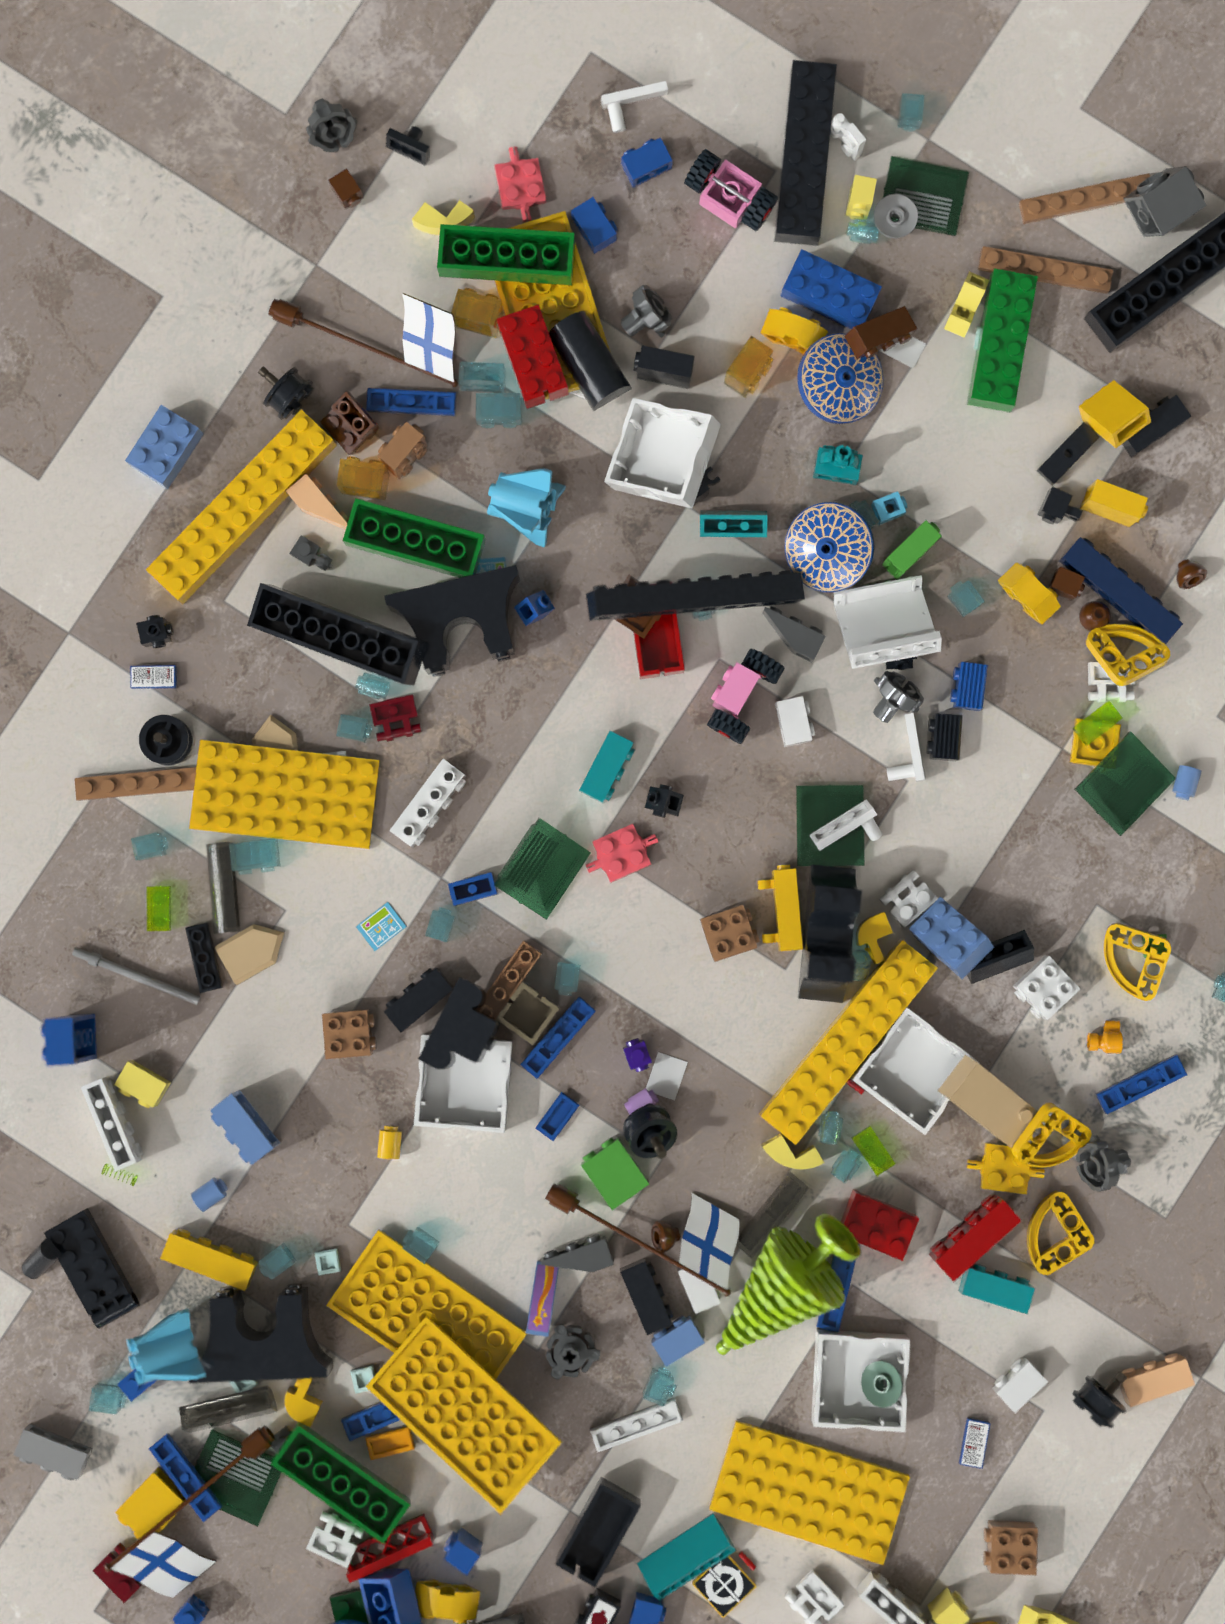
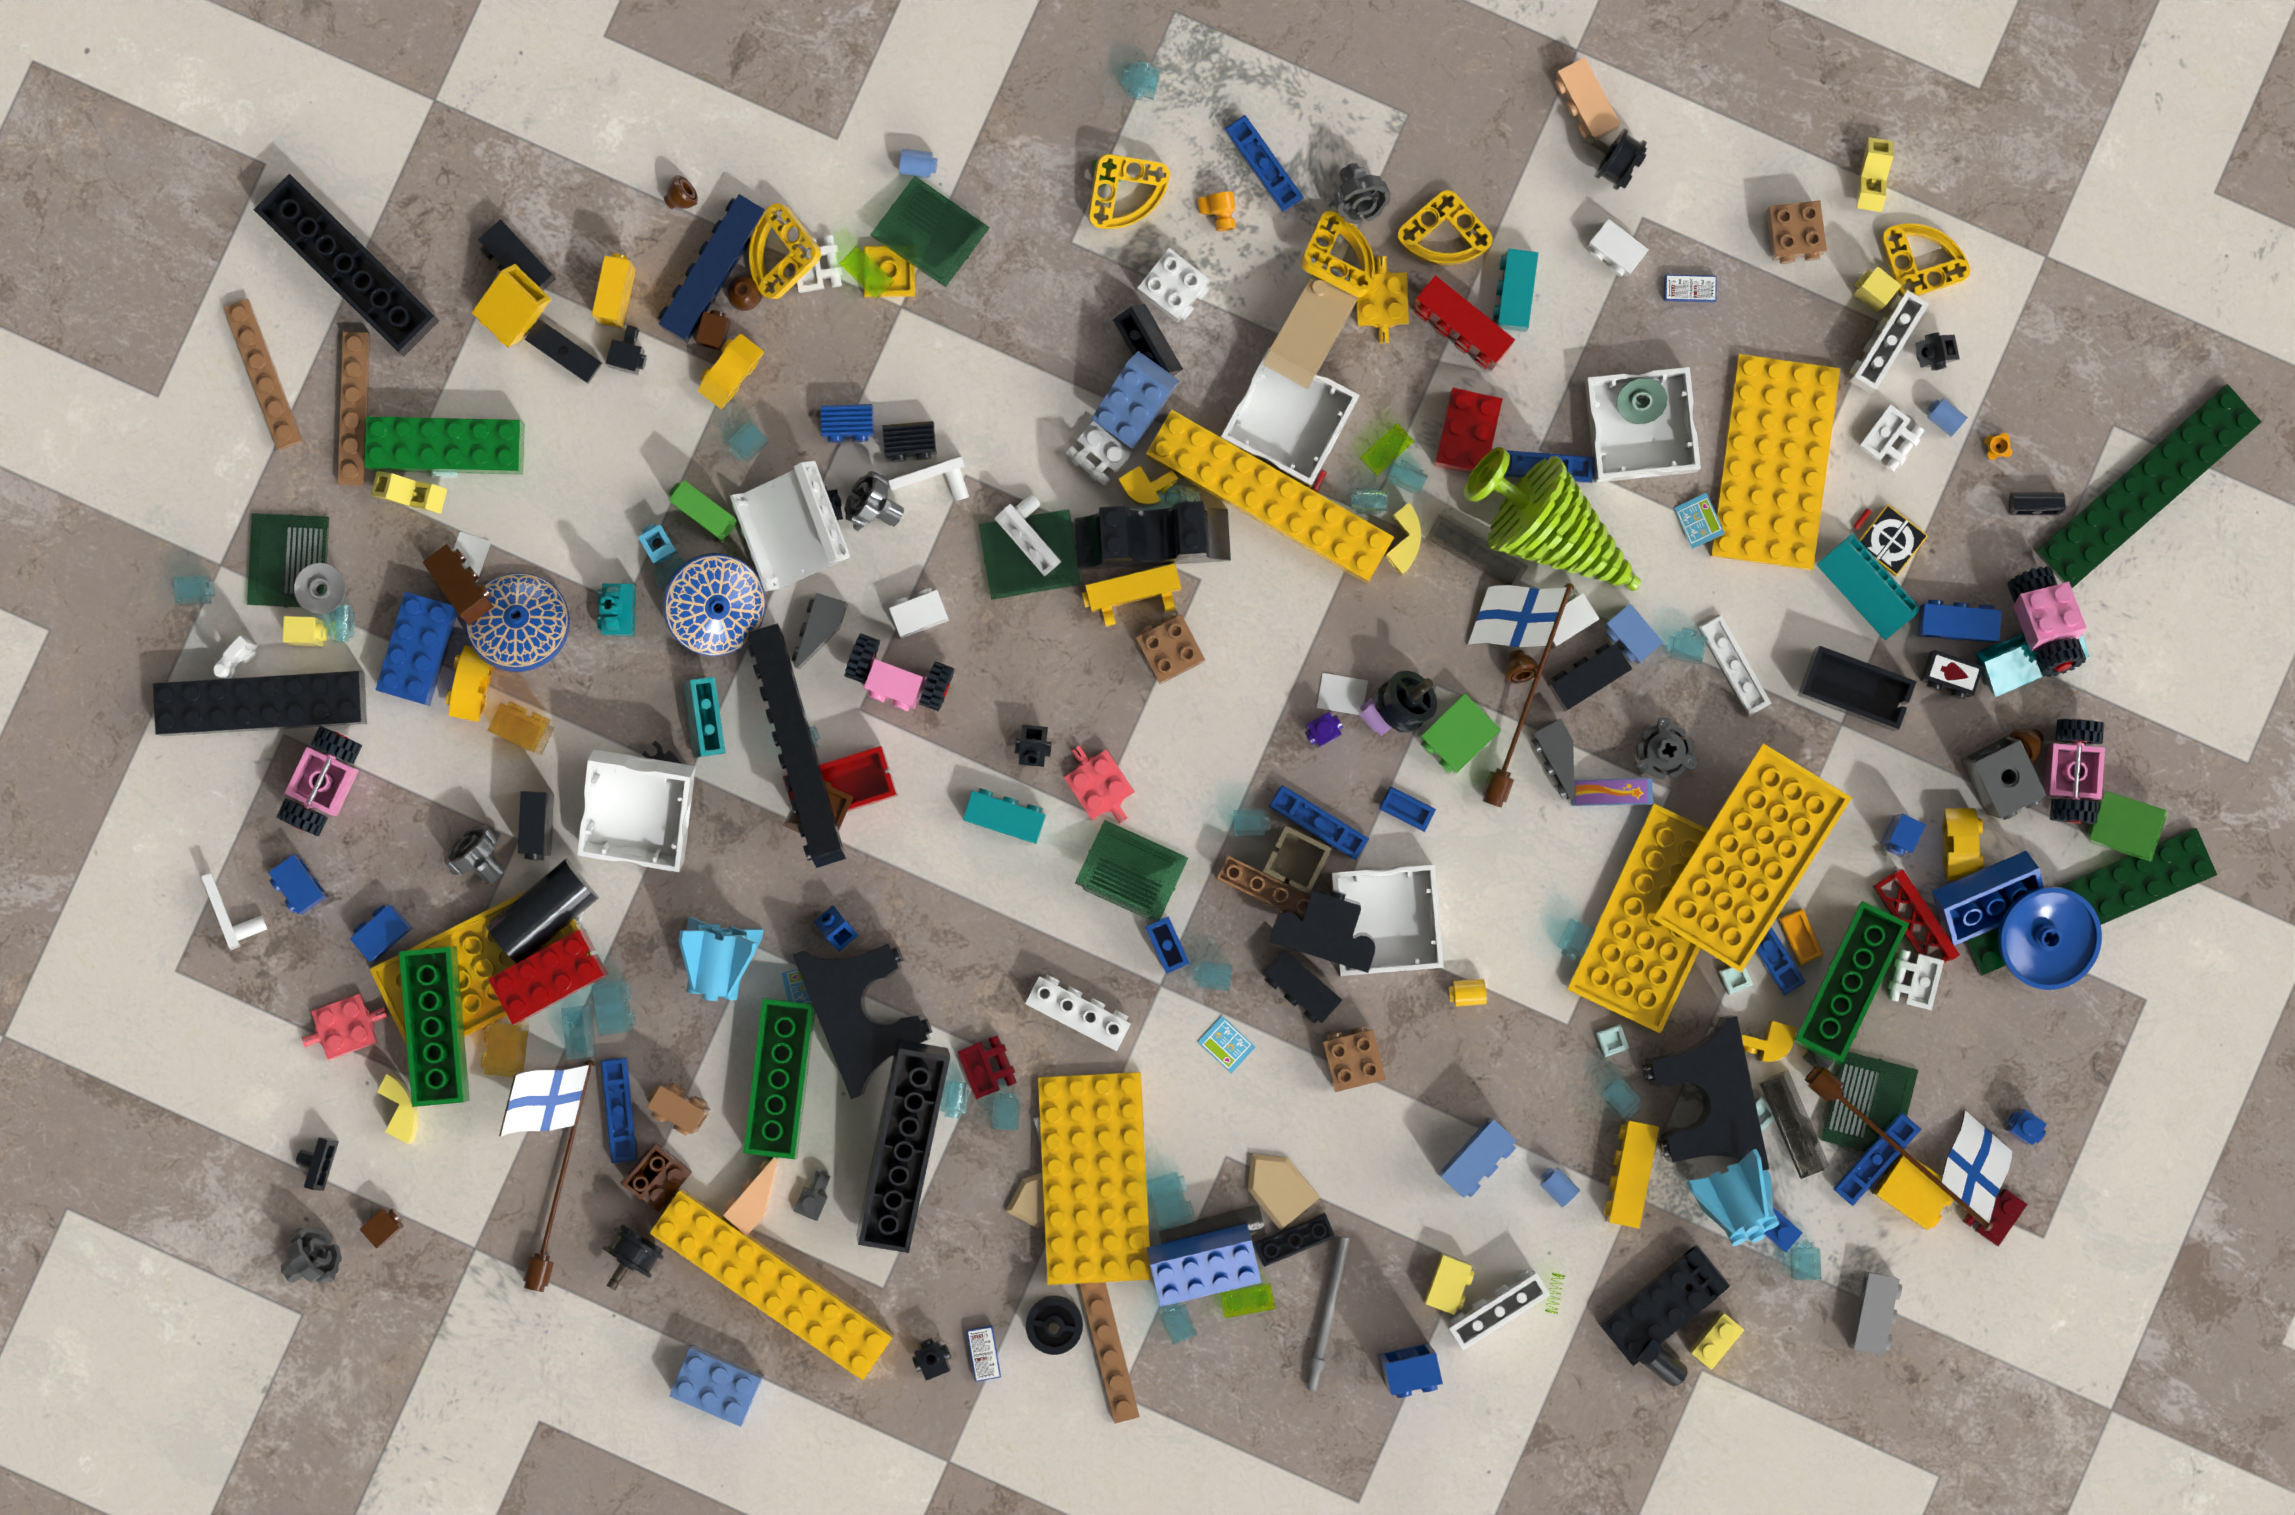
camera: 100 degrees left, 0 degrees up
(53, 1308) = (1716, 1340): none -> light yellow brick
(193, 875) = (1203, 1265): none -> brick
(363, 478) = (718, 1148): clear yellow brick -> none
(768, 1416) = (1699, 520): none -> sticker
(1165, 201) = (257, 285): dark grey brick -> none

